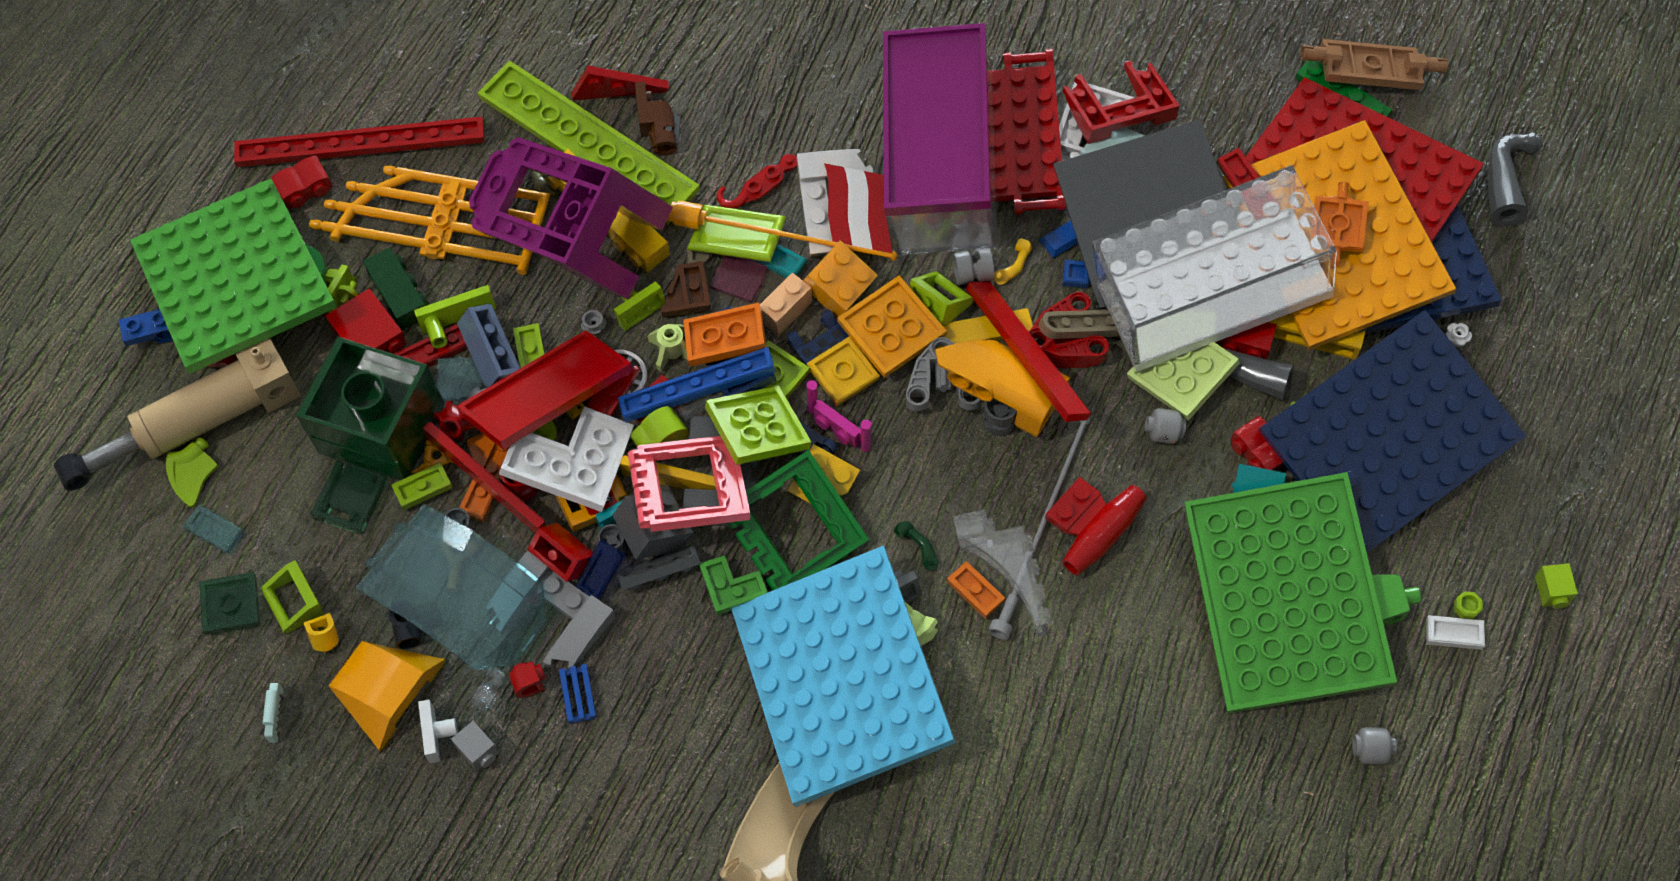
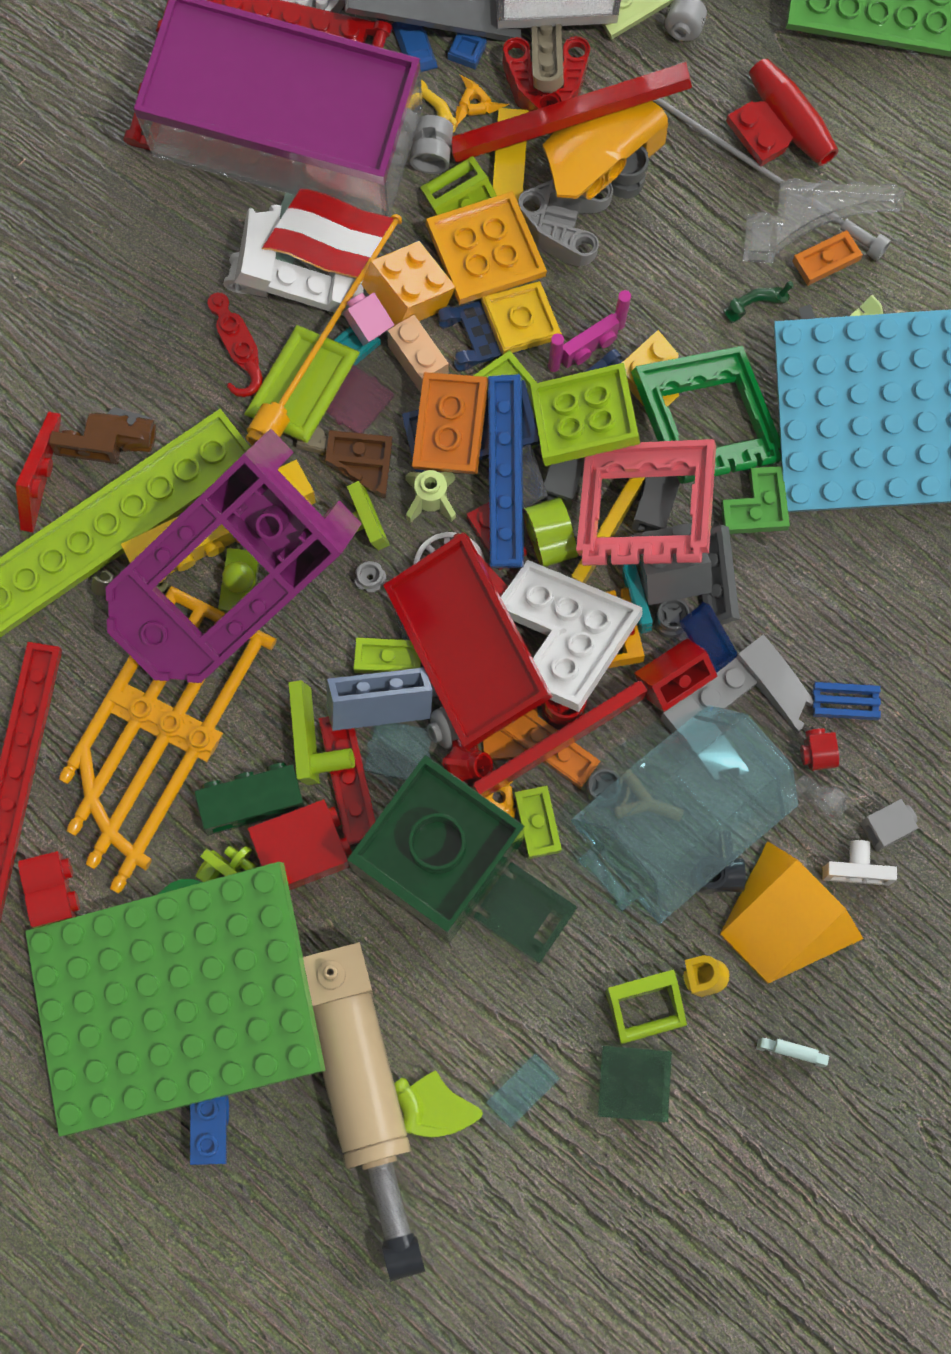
camera: 80 degrees left, 10 degrees up
(799, 257) = (367, 317): none -> bright pink brick
(1029, 300) = (474, 91): none -> light orange piece

